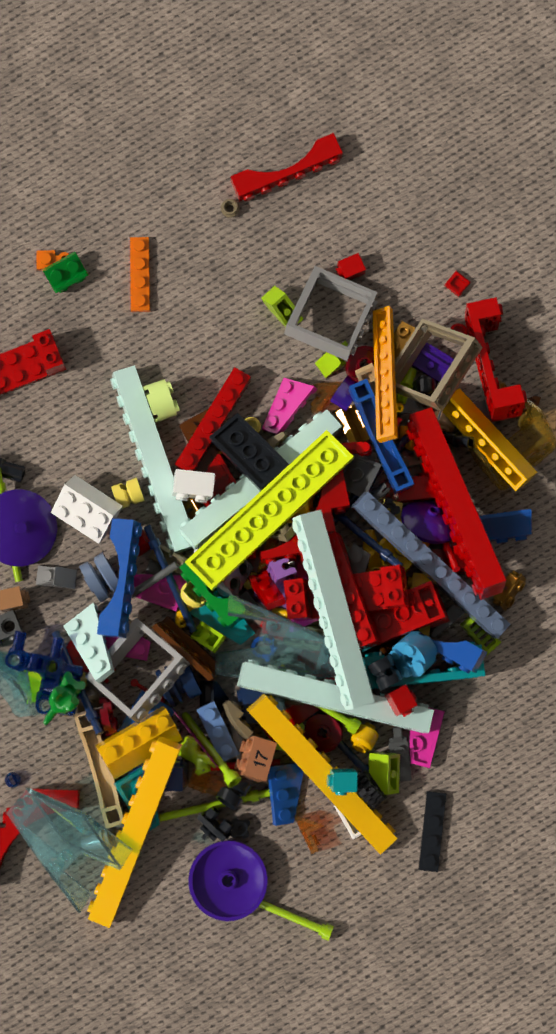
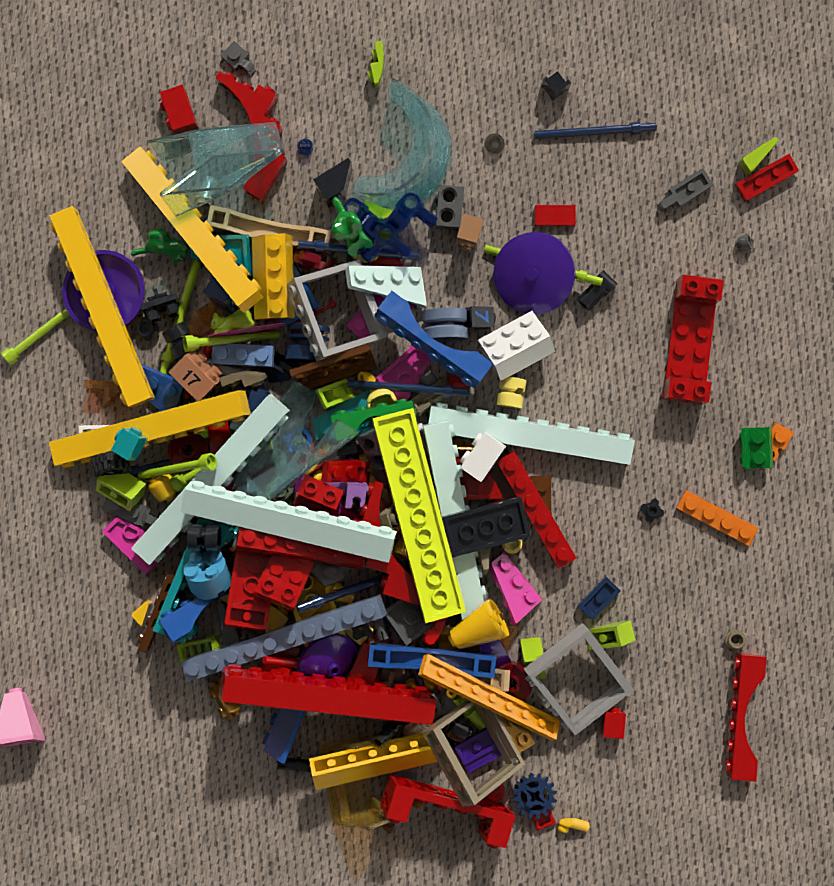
camera: 120 degrees right, 5 degrees up
(32, 734) = (334, 182): none -> black slope
(38, 905) = (178, 109): none -> red brick
(56, 577) = (469, 284): light grey slope -> none
(79, 552) = (480, 318): none -> black brick
(155, 578) = (415, 373): dark grey bar -> none
(157, 329) = (654, 504): none -> black plate
(160, 400) = (582, 470): yellowish green brick -> none
(161, 855) = (160, 243): none -> green animal
(241, 872) = (101, 306): none -> yellow brick
(257, 333) = (598, 598): none -> dark blue plate
(323, 706) = (205, 462): none -> lime piece
(333, 413) = (479, 627): none -> yellow cone
(402, 700) = (171, 539): red brick -> none
(432, 831) = (45, 502): black plate -> none
(447, 255) = (566, 823): none -> yellow arm
(452, 298) = (542, 783): none -> dark blue gear
(477, 683) = (147, 637): none -> reddish brown wing
(477, 697) = (142, 613): none -> yellow slope
(528, 501) = (294, 764): none -> black pin

